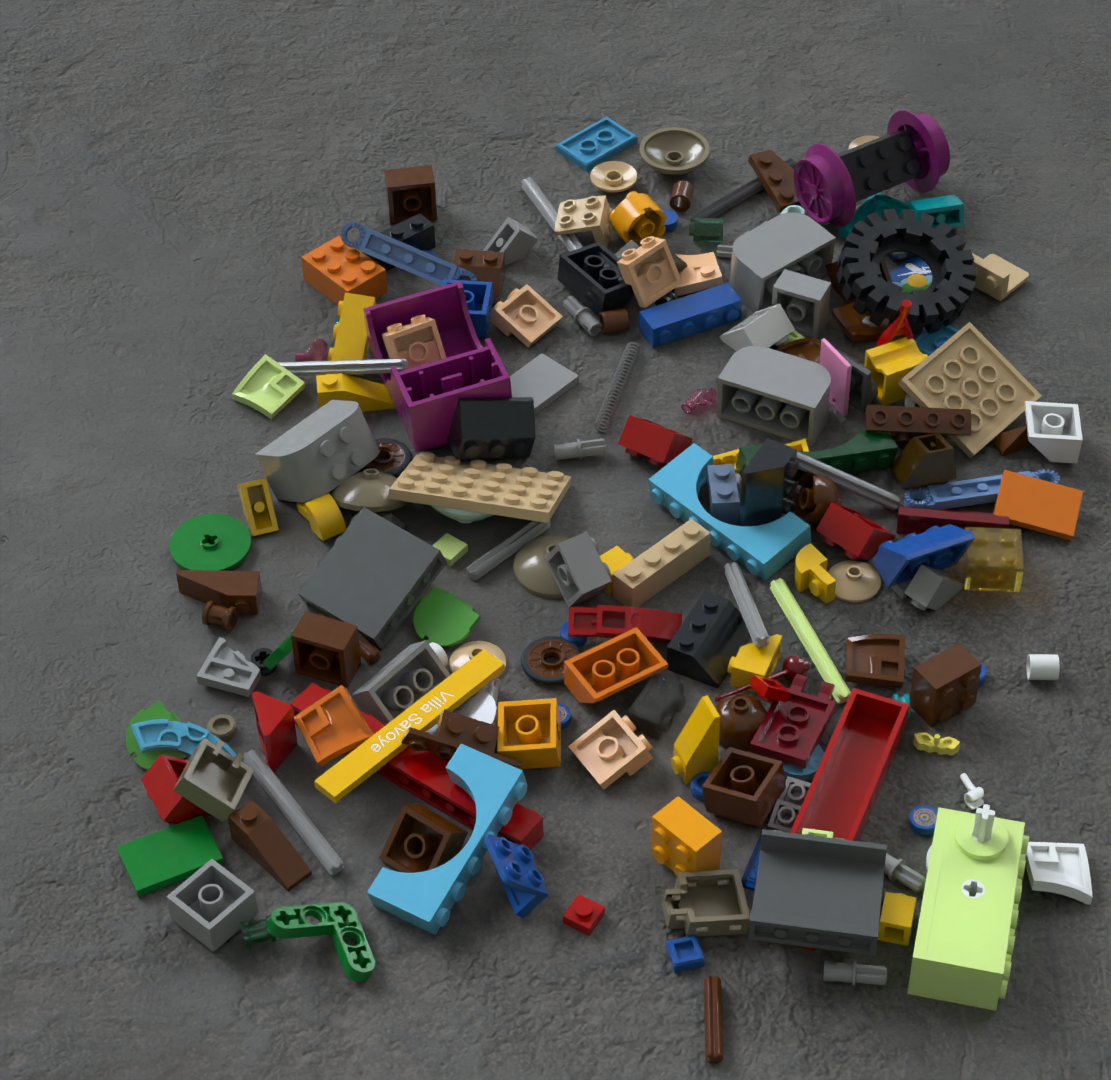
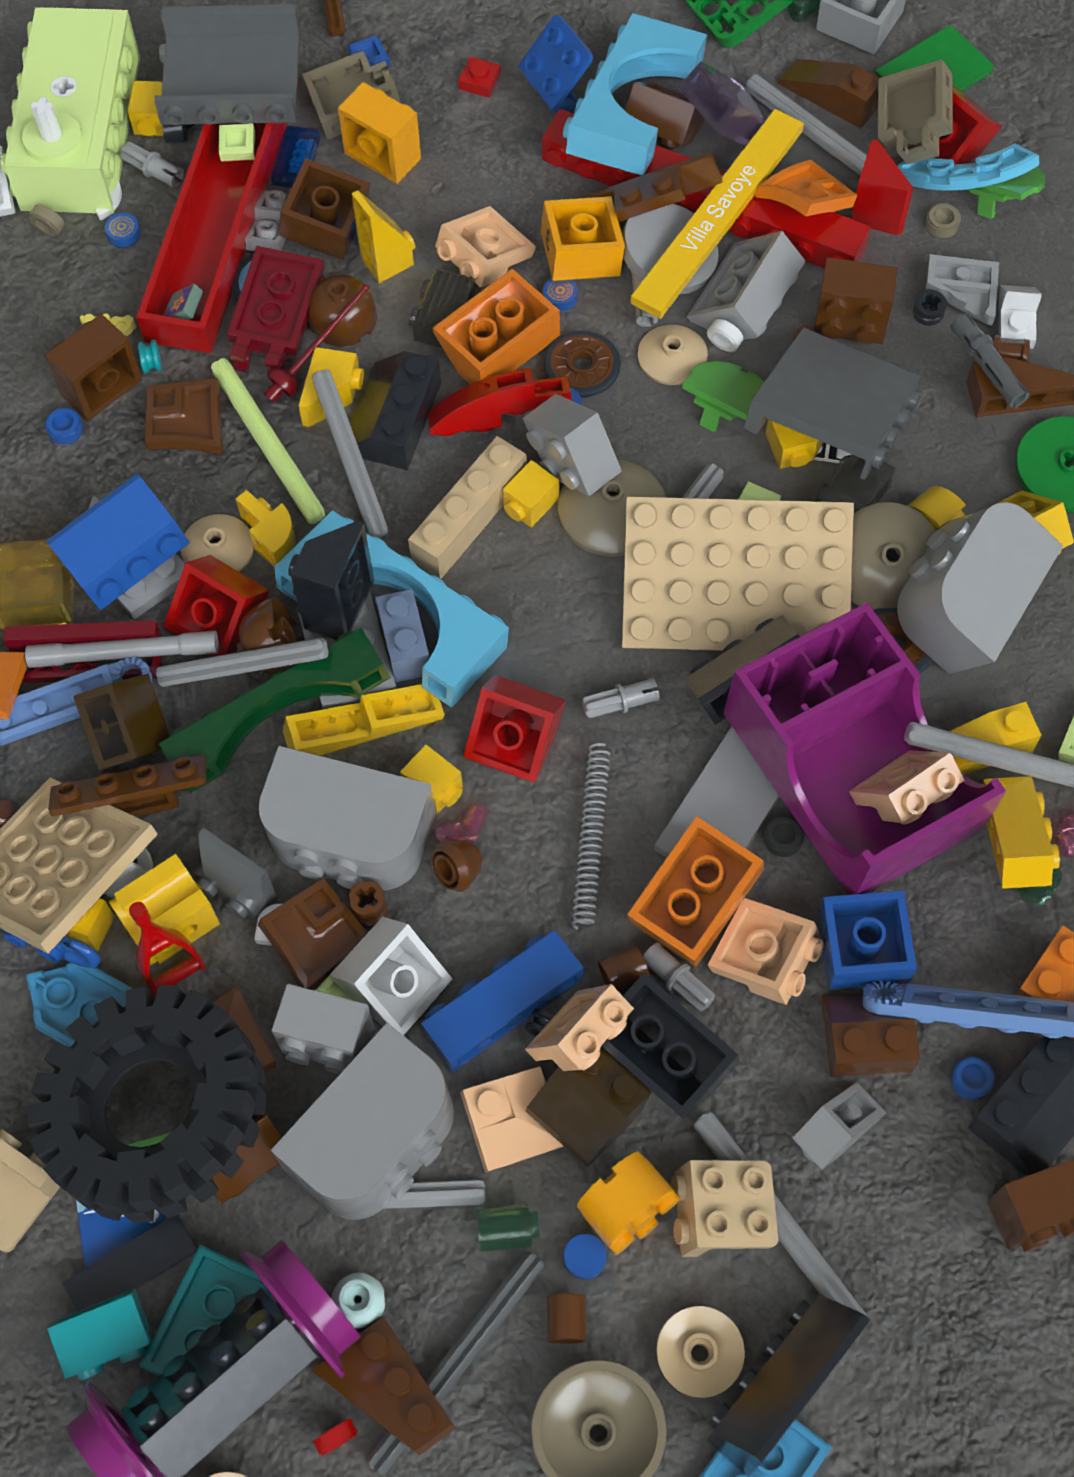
camera: 170 degrees right, 20 degrees up
(195, 647) = (1018, 313): none -> white slope
(247, 592) = (981, 349): none -> dark grey pin
(279, 653) = (906, 308): green tile -> none
(373, 811) = (723, 103): none -> clear purple brick
(561, 334) = (696, 891): none -> orange brick
(571, 149) = (785, 1382): none -> black slope
(705, 375) = (456, 864): none -> reddish brown cone
(716, 420) = (434, 769): none -> yellow brick
(769, 689) = (305, 319): red plate -> none
(840, 375) = (256, 851): bright pink container -> none
(871, 722) = (184, 303): none -> sand green tile
(879, 505) = (58, 653): none -> light grey piece
(974, 796) = (64, 264): white hand -> none

